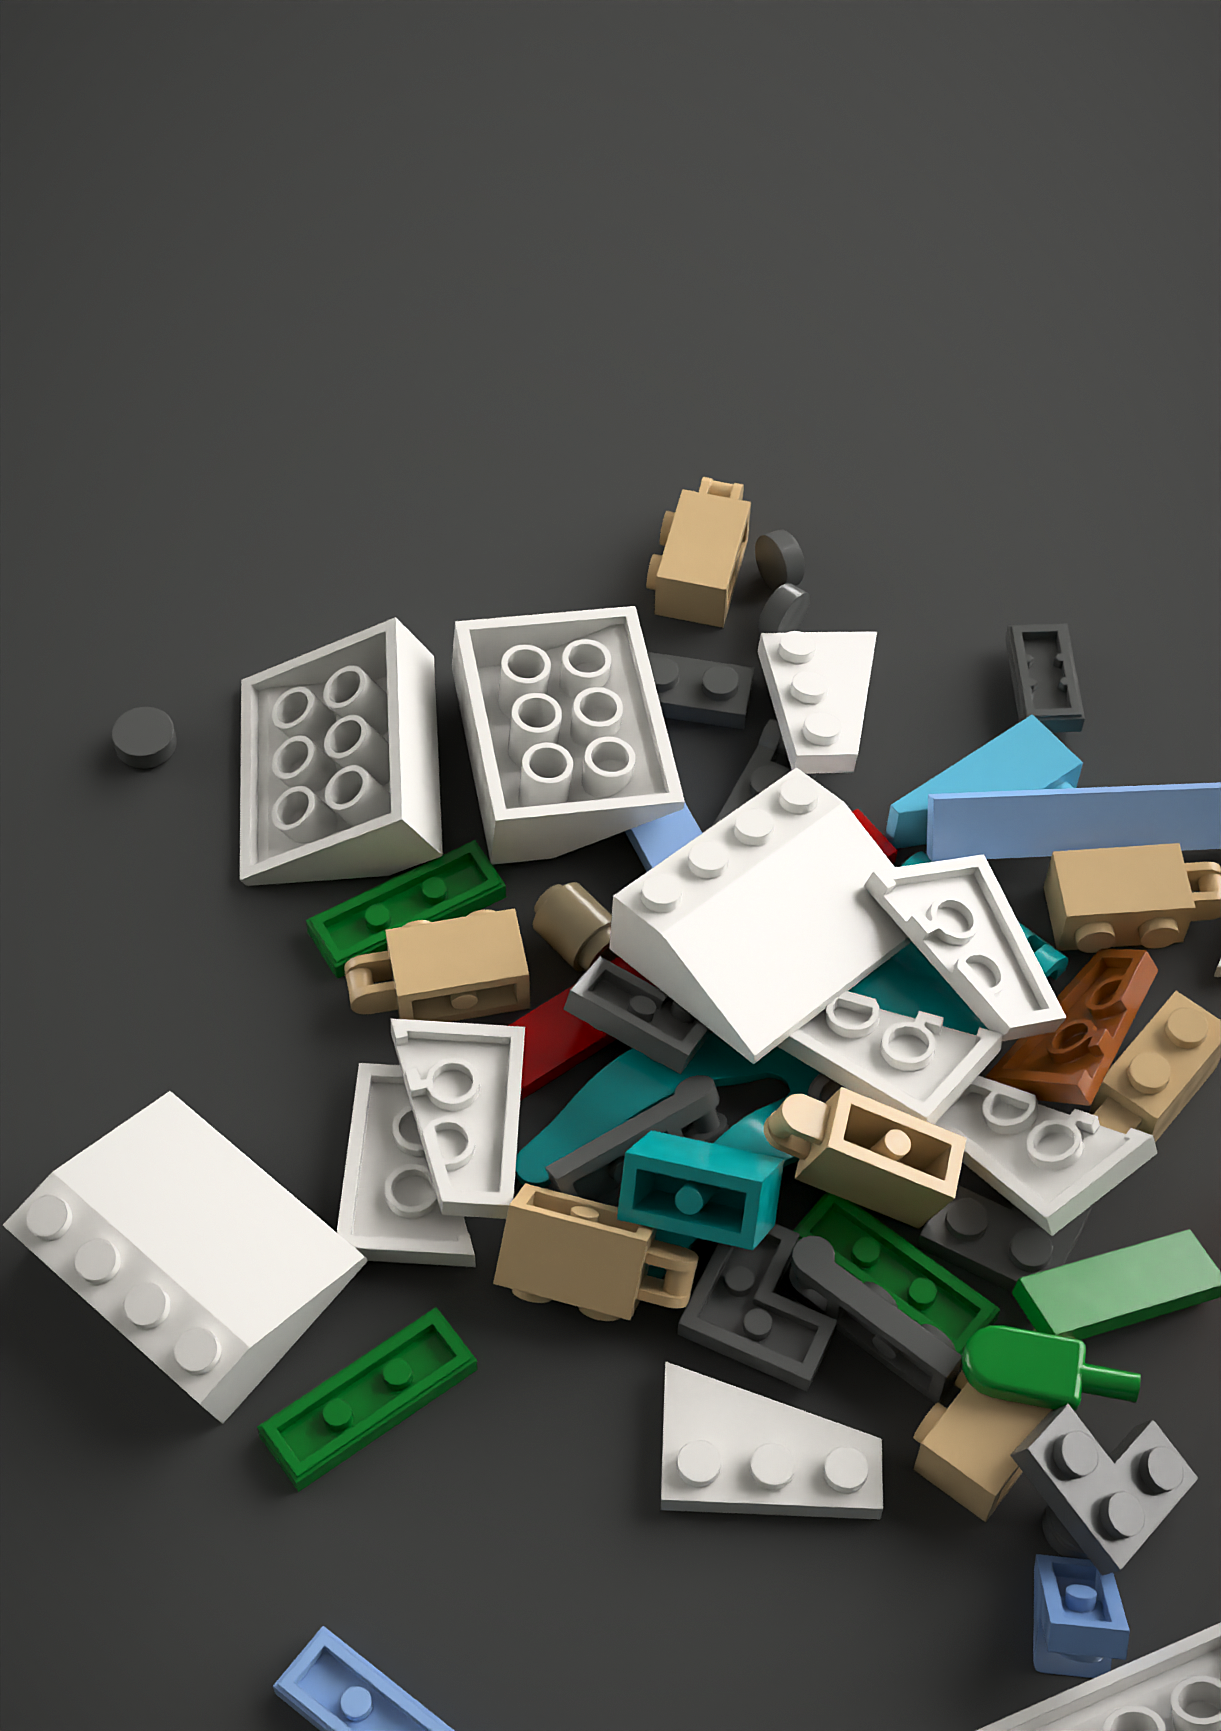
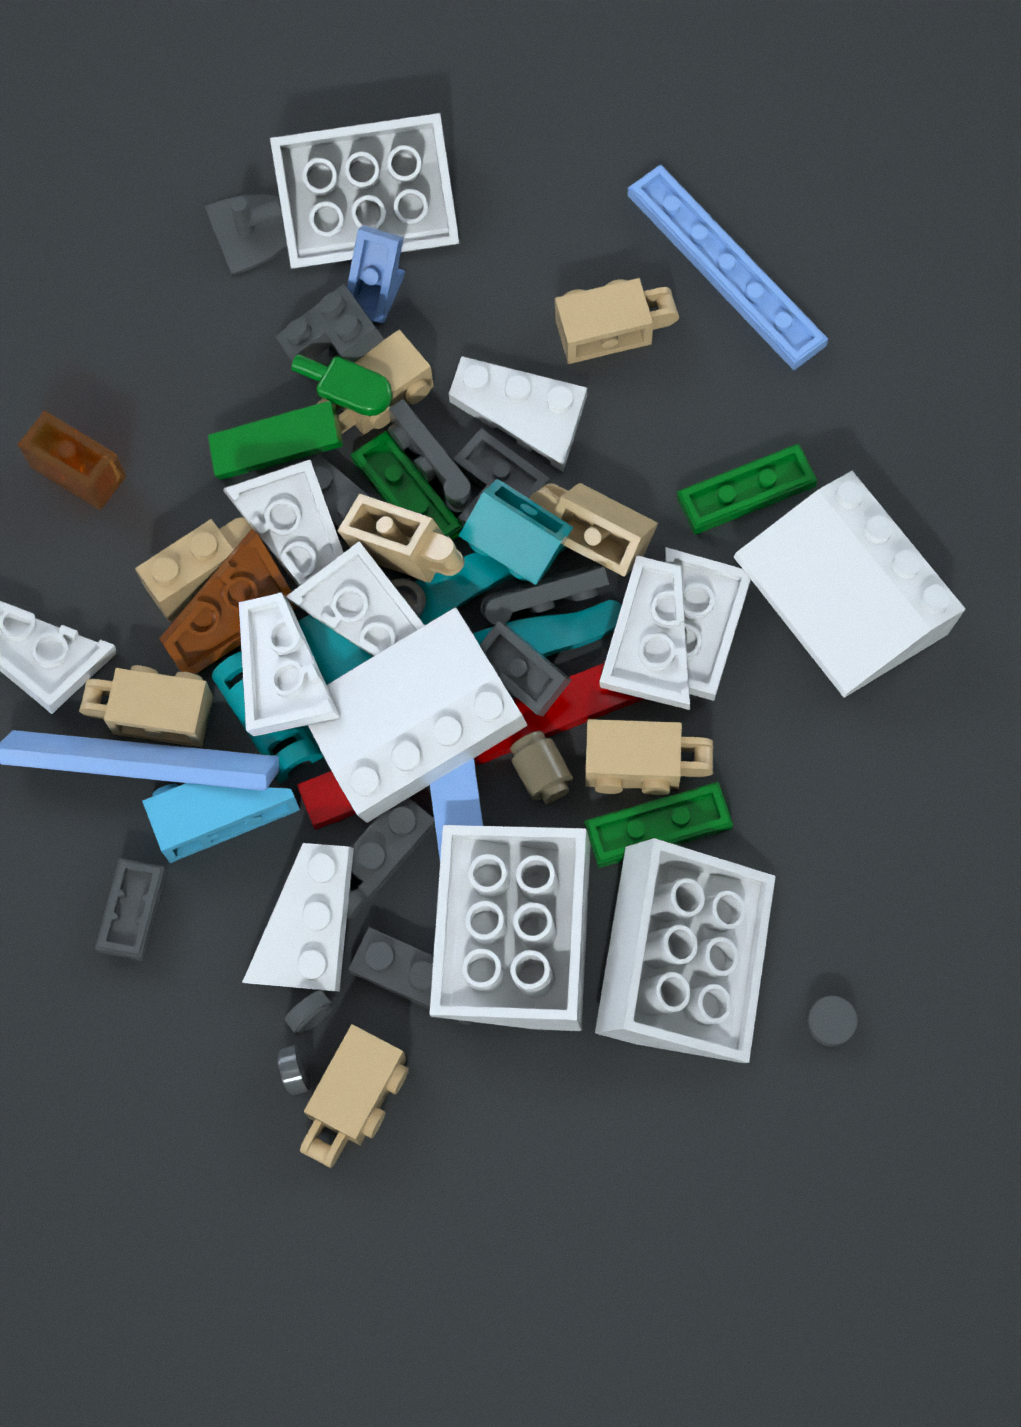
camera: 160 degrees left, 15 degrees up
(653, 1630) = (611, 318): none -> tan brick

